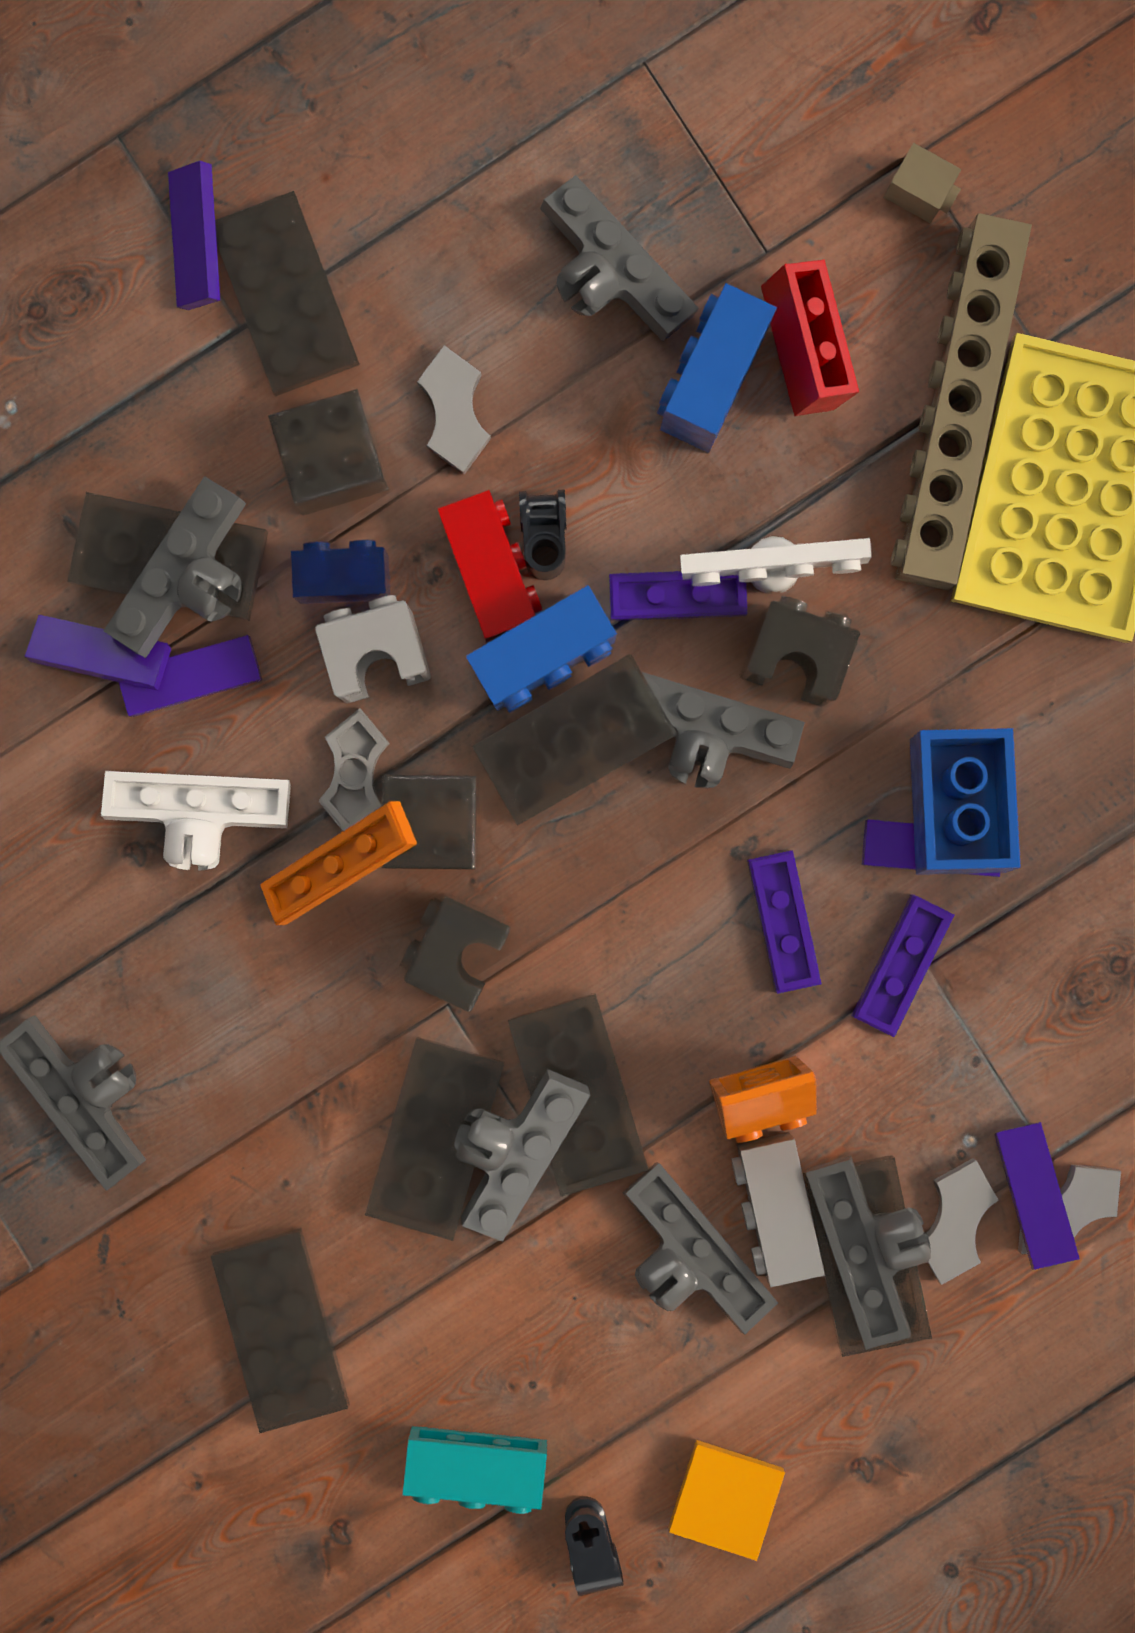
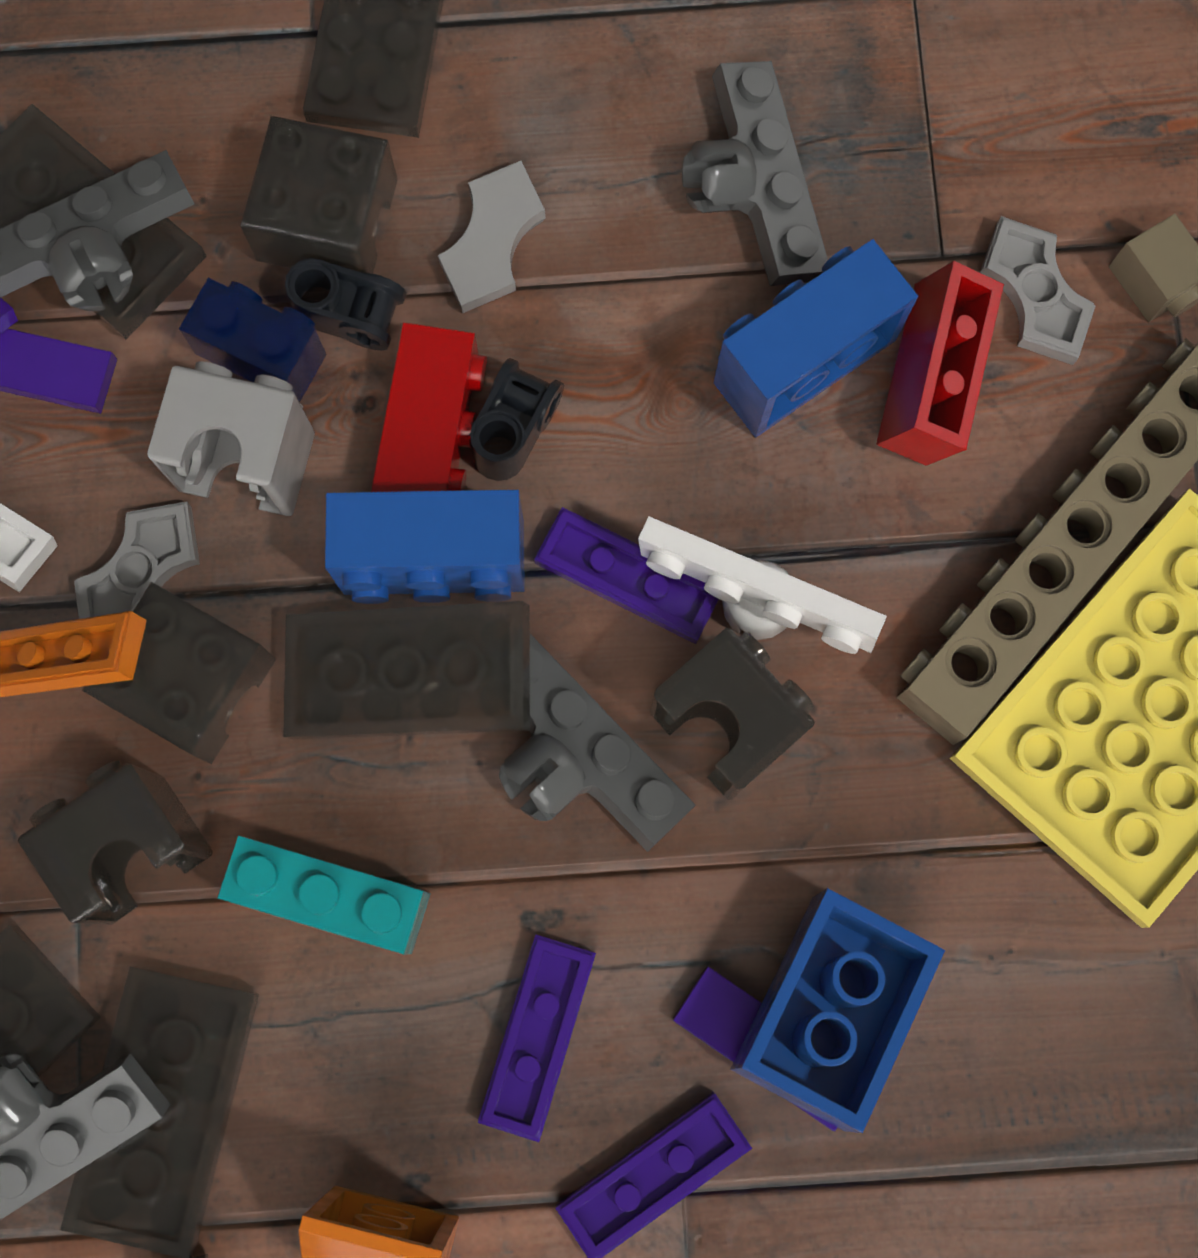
camera: 25 degrees right, 10 degrees down
(388, 513) = (356, 306): none -> black piece
(605, 909) = (324, 896): none -> teal brick
(860, 254) = (1048, 311): none -> light grey tile

